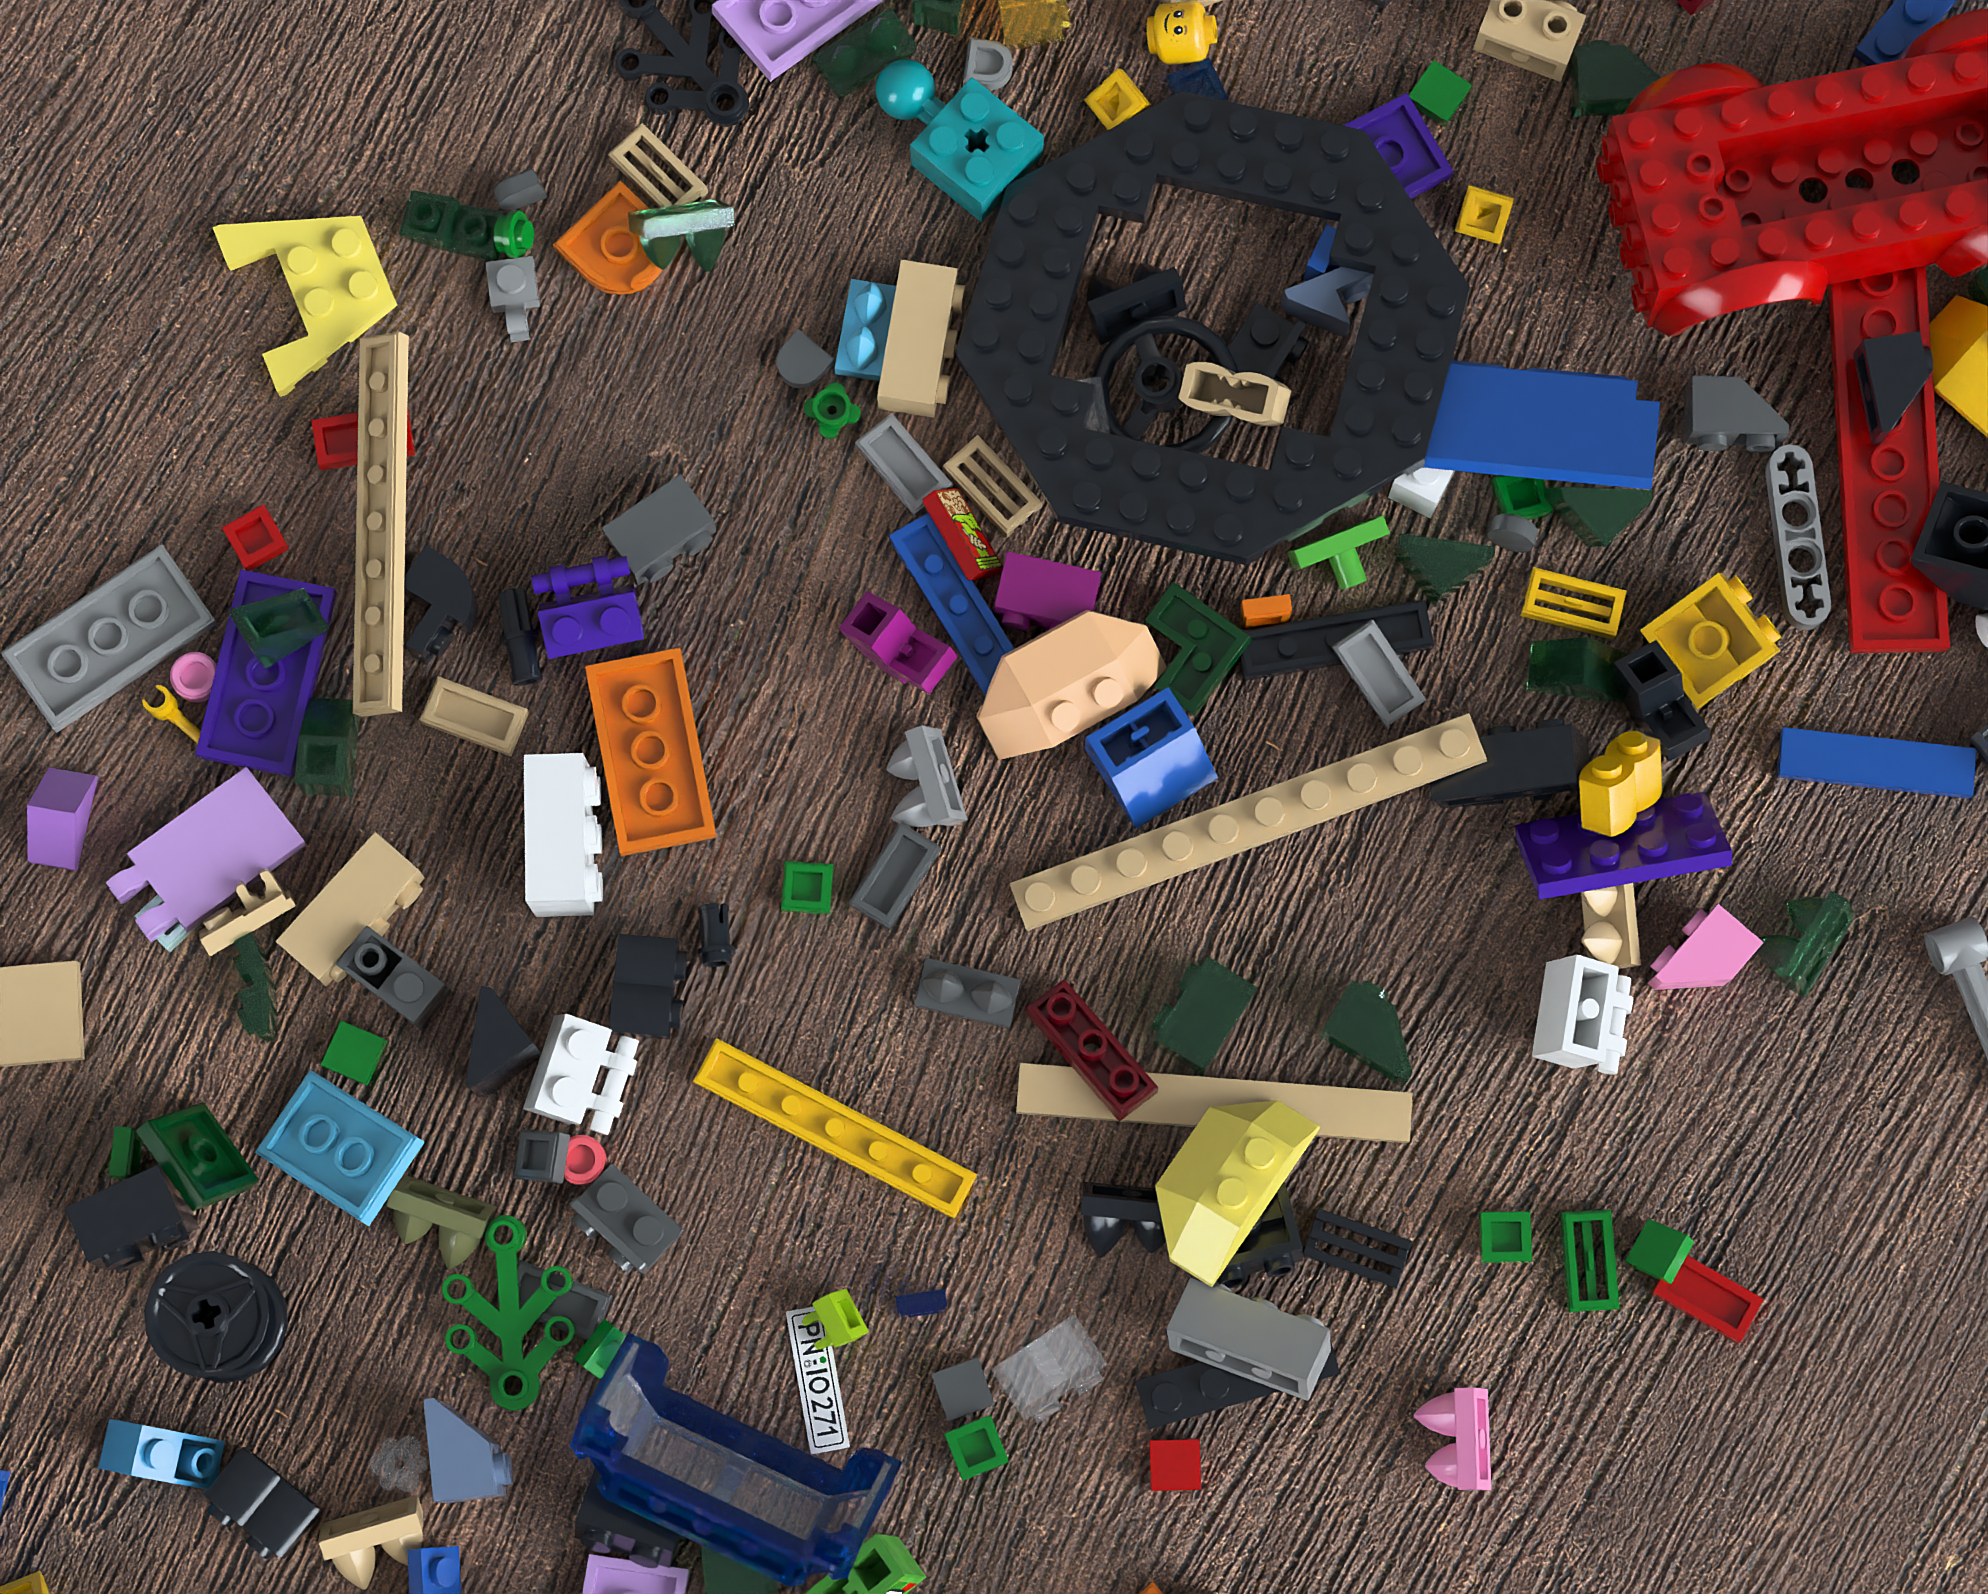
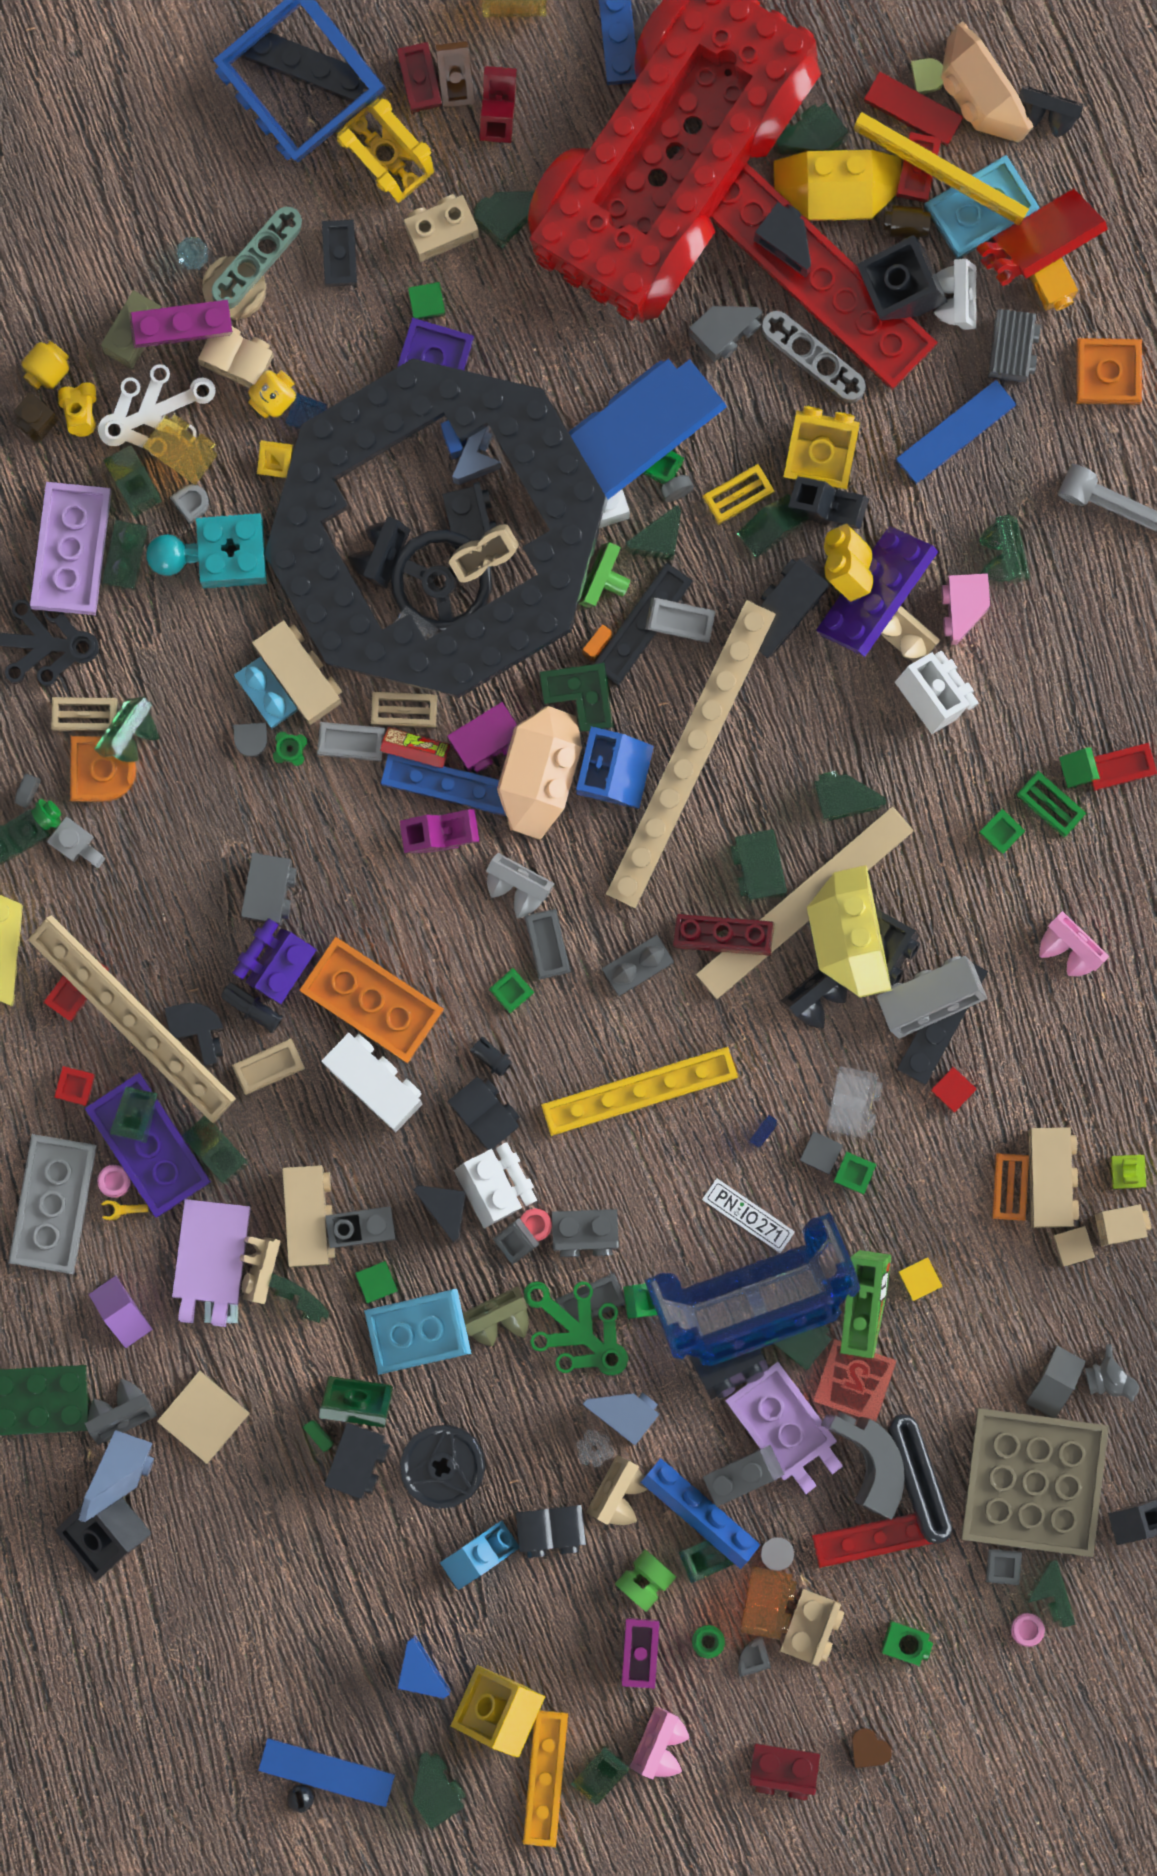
camera: 45 degrees left, 5 degrees up
(839, 1319) = (732, 1177): lime tile -> none
(1397, 1262) = (963, 893): black tile -> none
(1484, 214) = (508, 342): yellow tile -> none
(1597, 513) = (709, 441): clear green slope -> none

